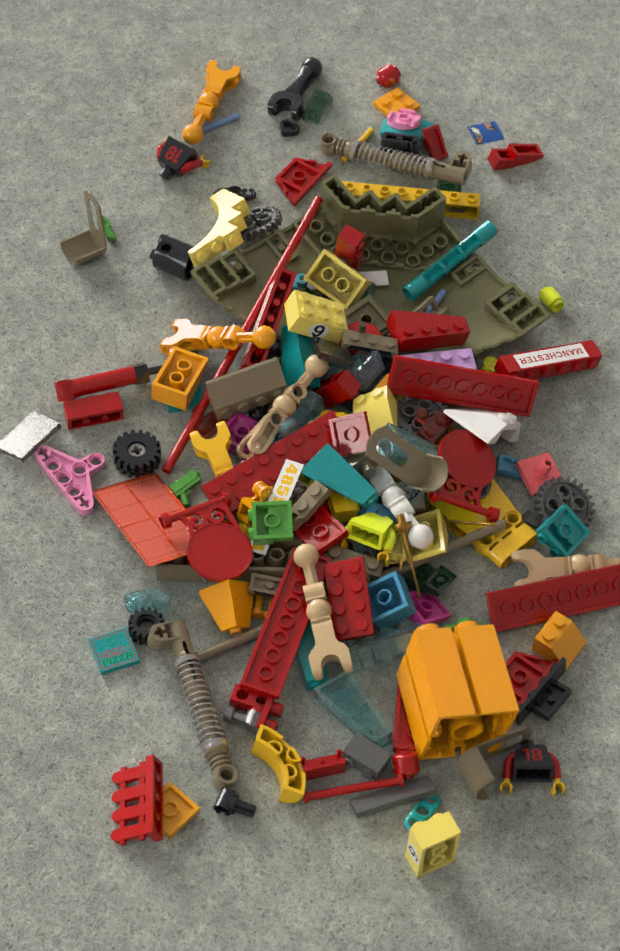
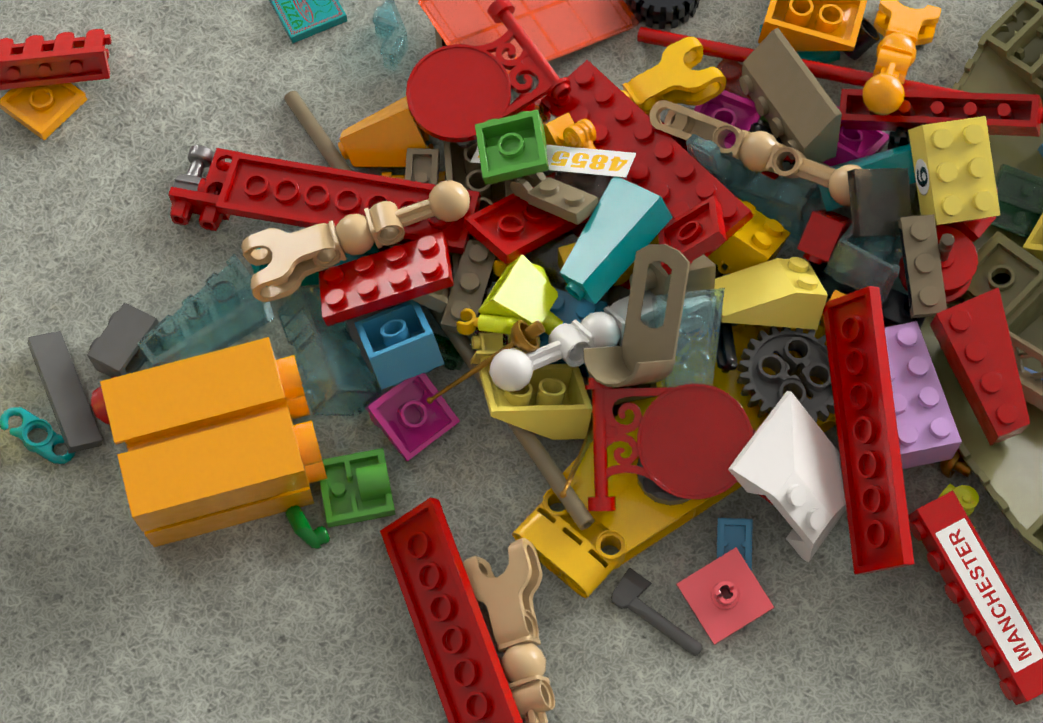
camera: 90 degrees right, 10 degrees up
(139, 617) = (349, 24): black tyre -> none
(183, 487) = (613, 58): bright green piece -> none
(188, 662) = (275, 87): dark tan piece -> none
(229, 802) = (51, 172): black axle -> none
(283, 760) = (116, 235): yellow brick -> none
(308, 796) = (65, 273): red bar -> none
(323, 766) = (116, 282): red hinge -> none
(430, 580) = (466, 421): clear green slope -> none
(432, 426) = (759, 385): clear red plate -> none
(473, 764) = (92, 502): dark tan piece -> none
(526, 672) = (288, 576): red wing -> none
(531, 764) = (113, 593): torso -> none
(547, 696) = (253, 618): black bracket -> none
(550, 494) = (640, 665): dark grey gear -> none
(559, 639) = (365, 636): light orange slope -> none
(562, 532) = (588, 631): teal plate -> none

